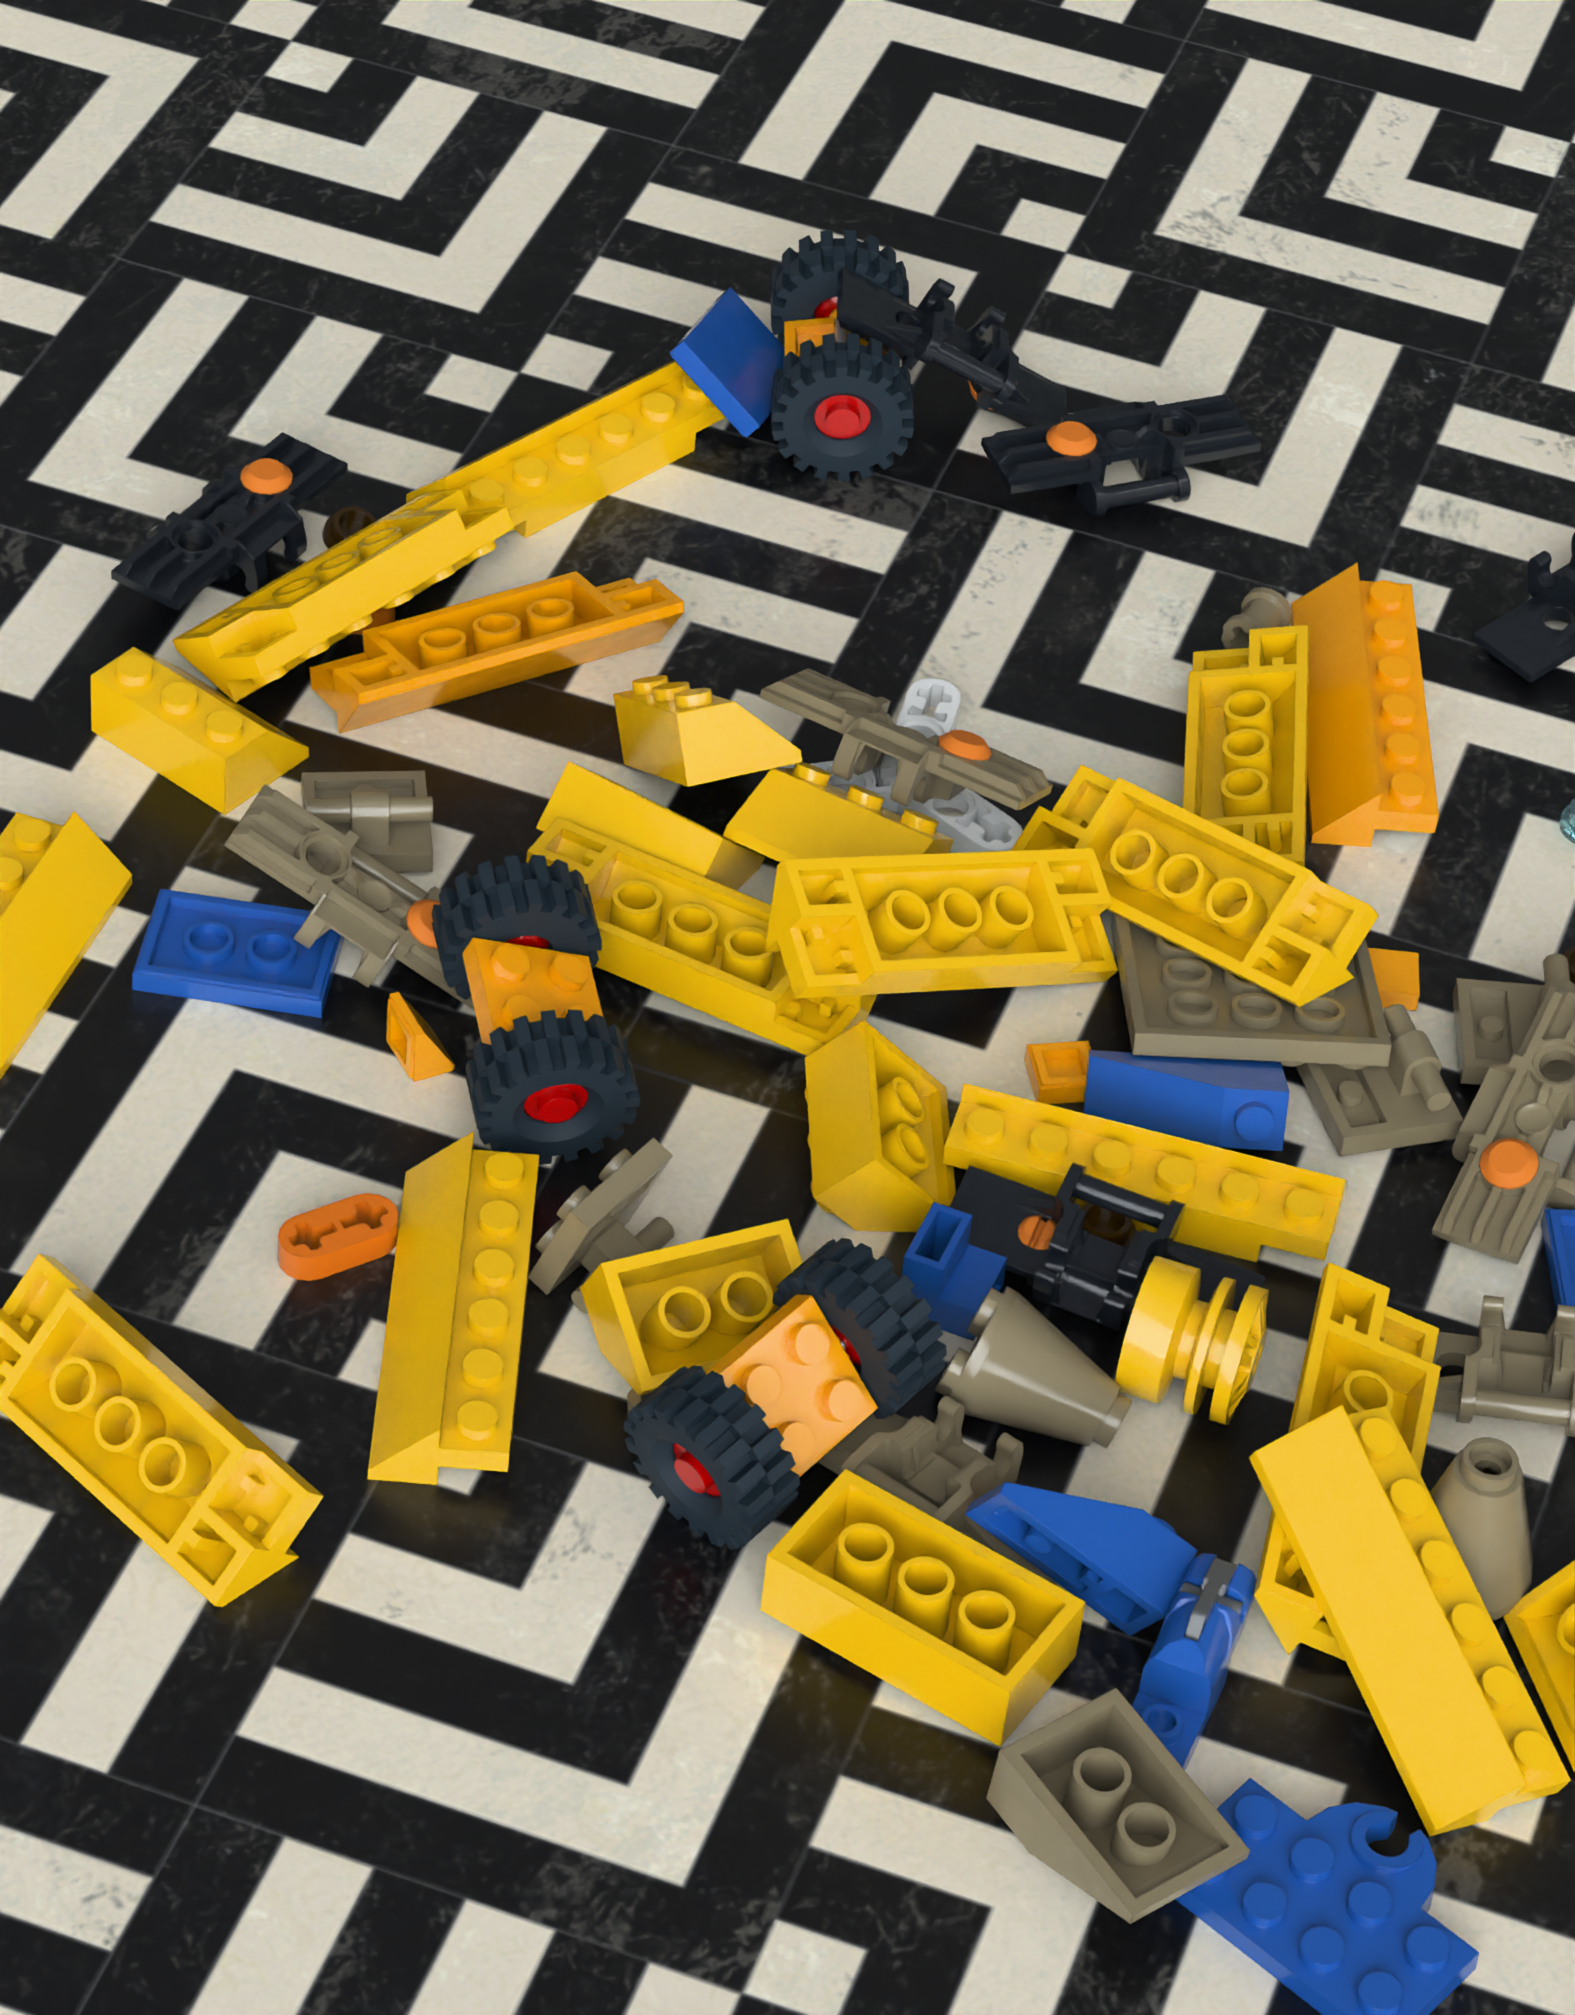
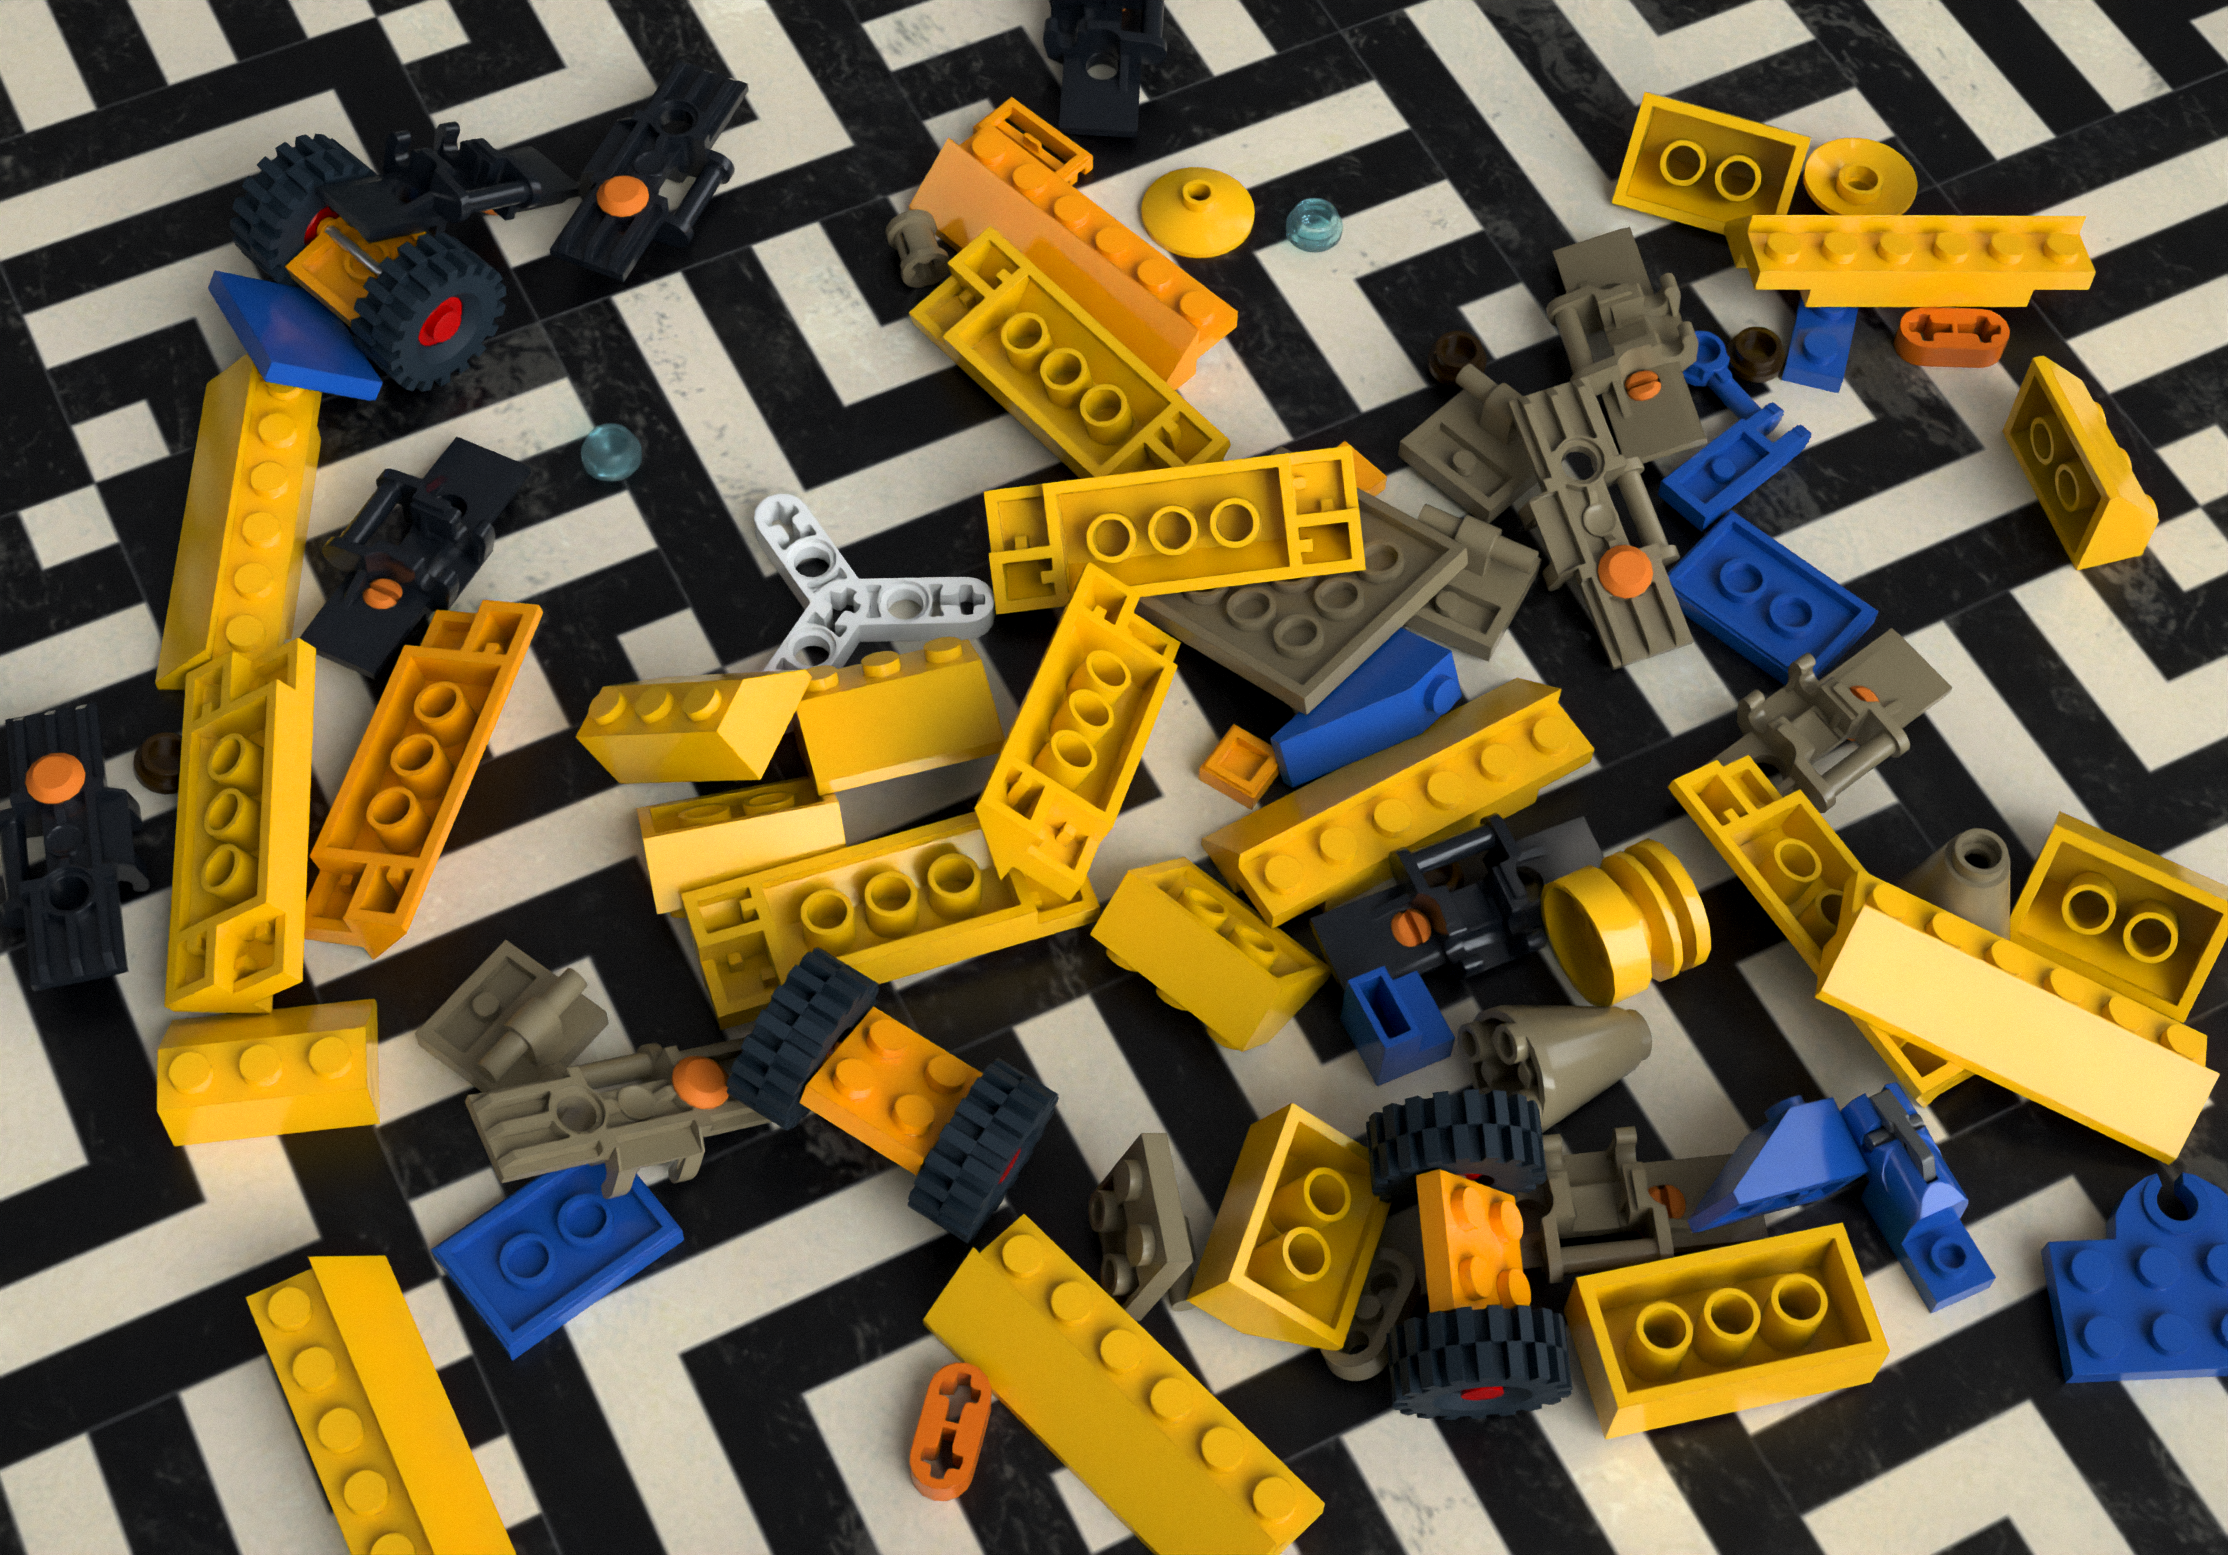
camera: 45 degrees left, 15 degrees up
(414, 1041) = (792, 1196): light orange slope -> none
(624, 546) = (431, 567): none -> black piece
(871, 584) = (611, 453): none -> clear light blue plate
(925, 766) = (827, 602): dark tan piece -> none
(1112, 1809) = (2032, 1369): dark tan slope -> none
(1440, 660) = (1039, 133): none -> light orange tile
(1515, 759) = (1197, 212): none -> yellow dish

